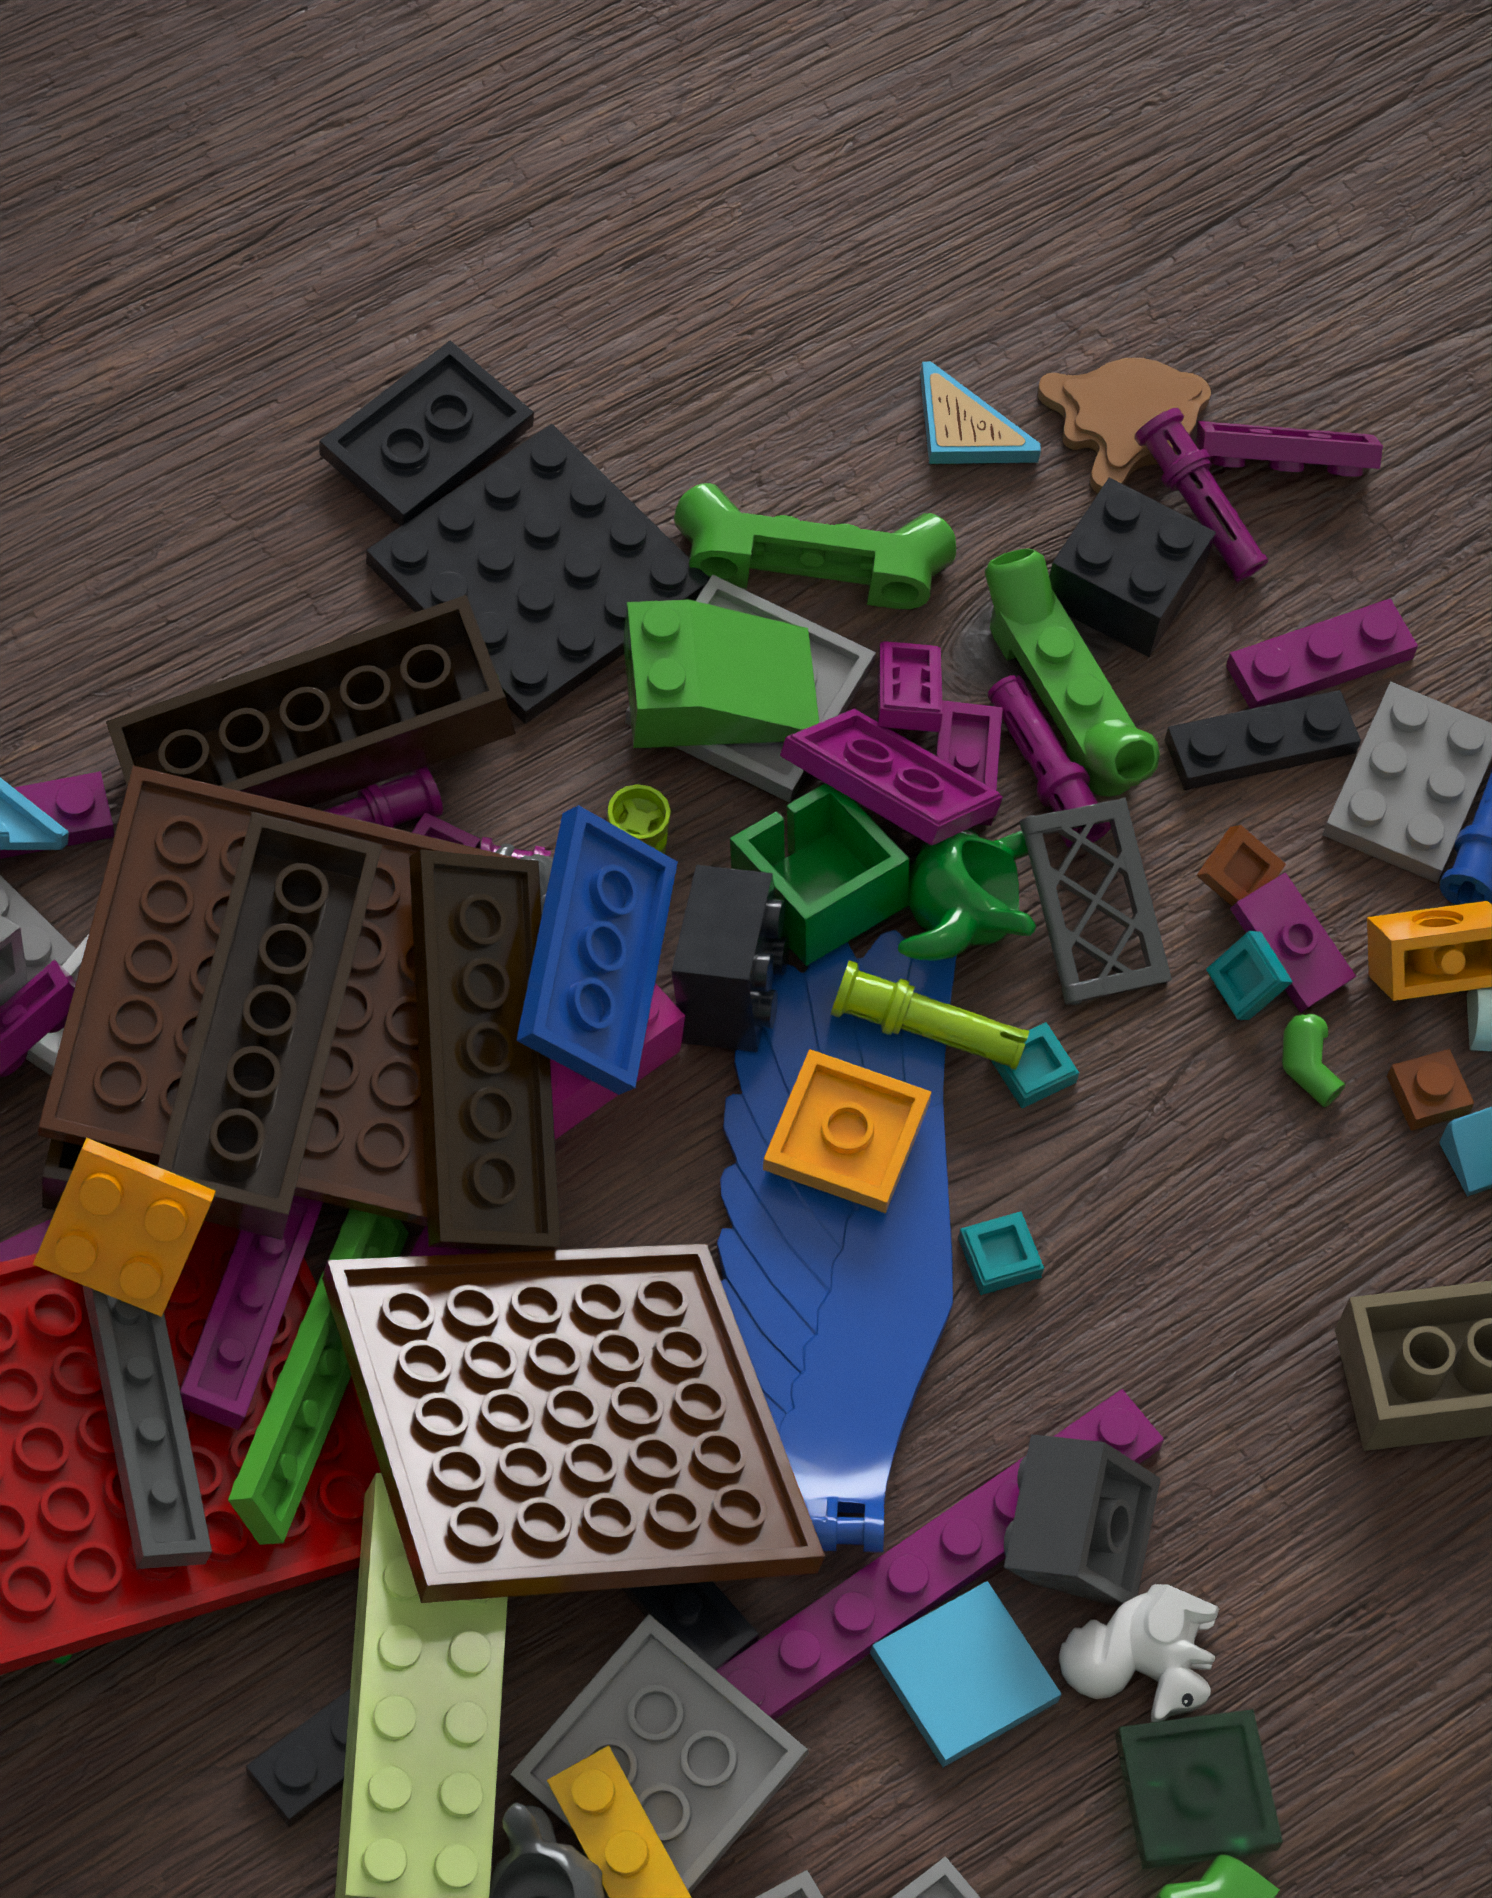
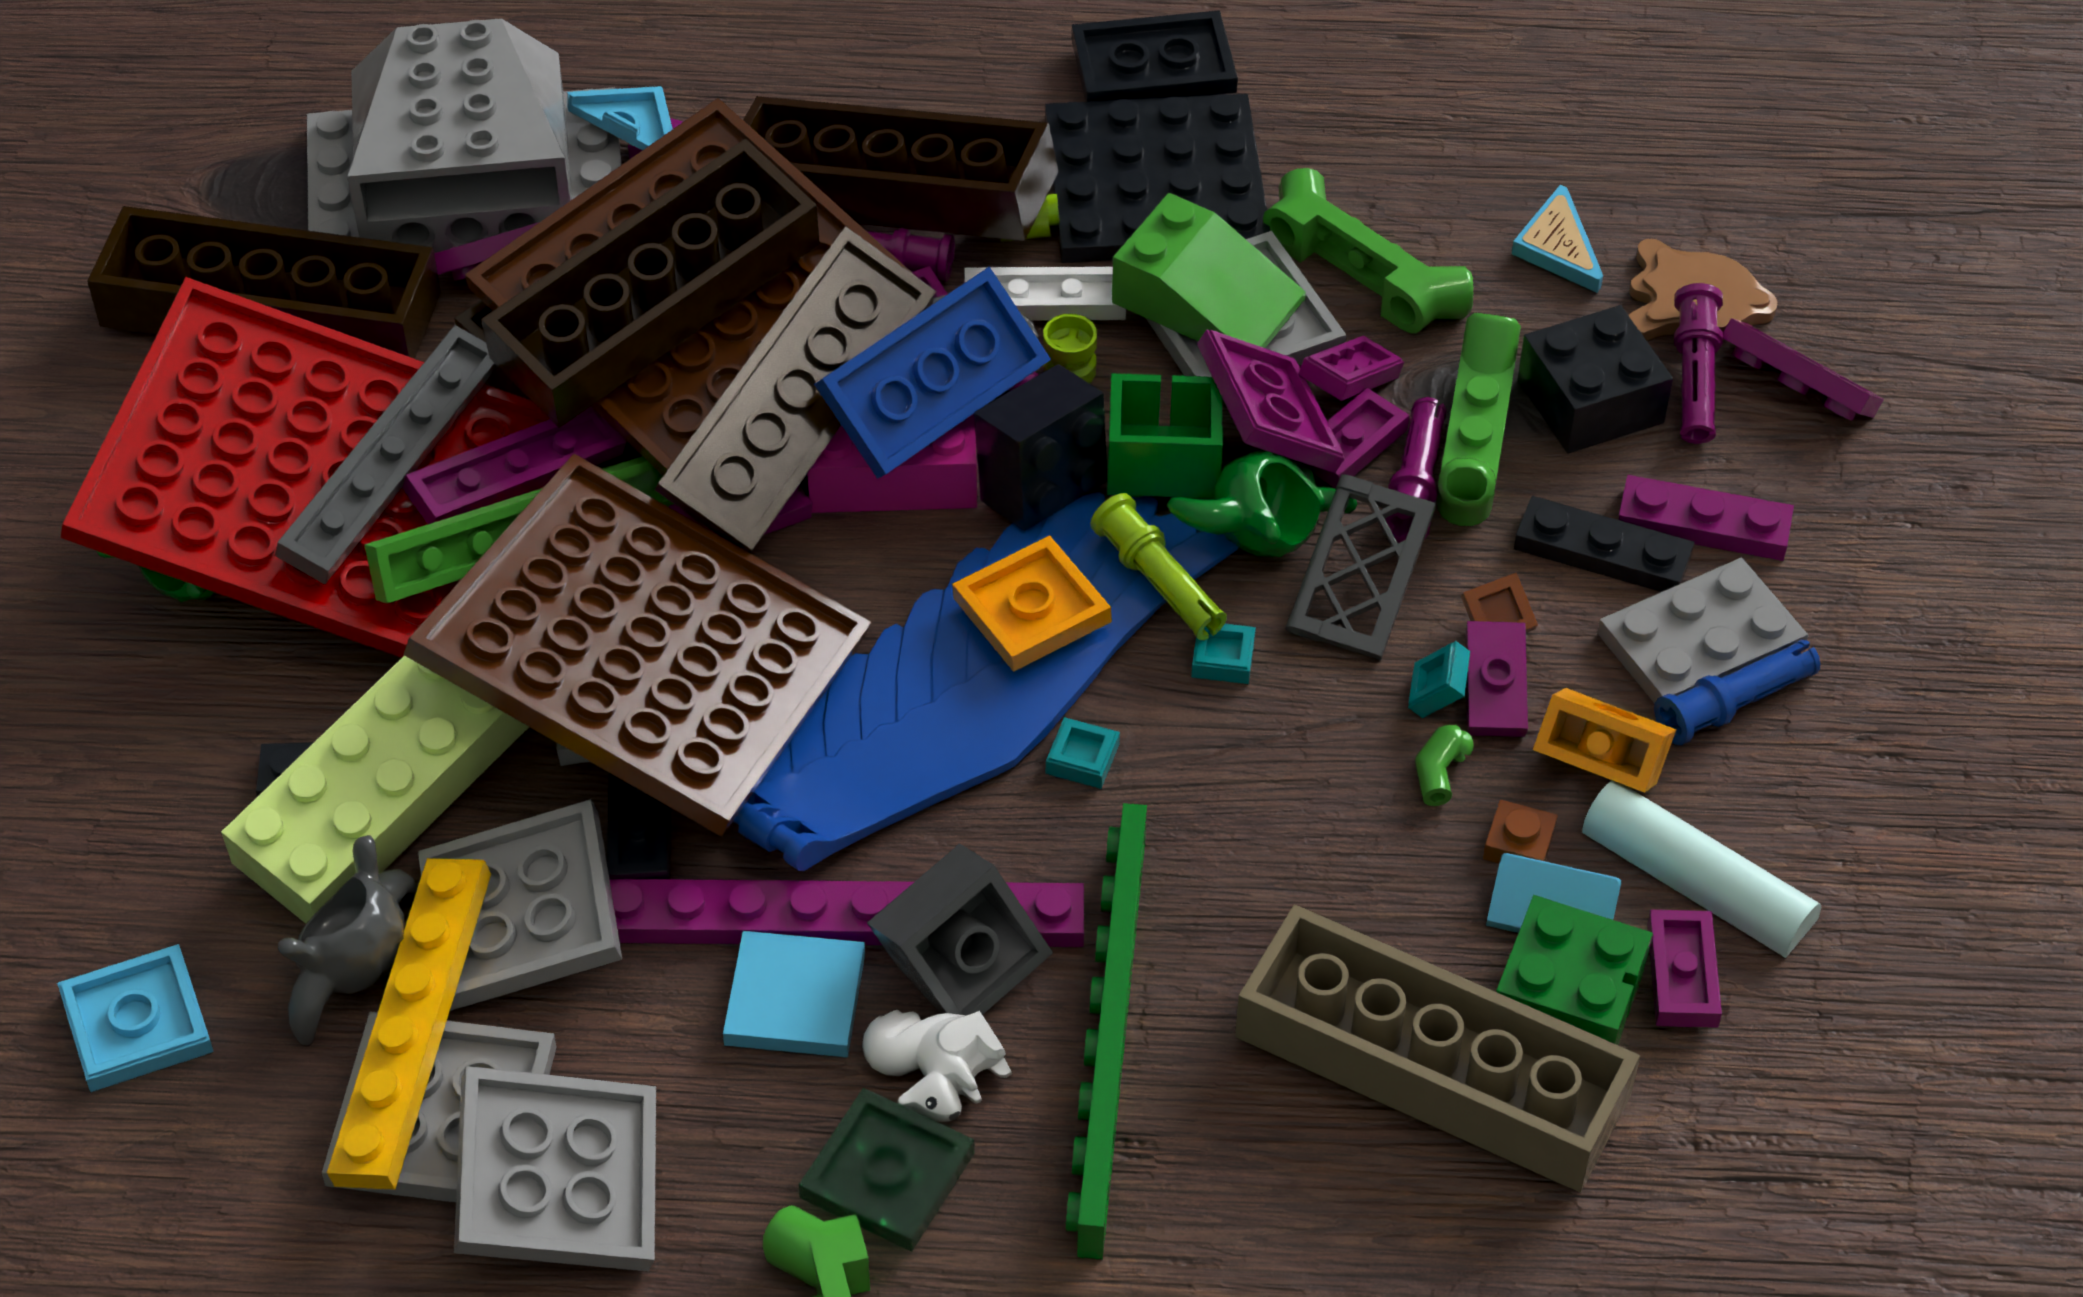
camera: 45 degrees right, 10 degrees down
(124, 1227) = (445, 343): light orange plate -> none
(552, 774) = (1055, 291): none -> white plate
(1277, 1530) = (1105, 1046): none -> green plate

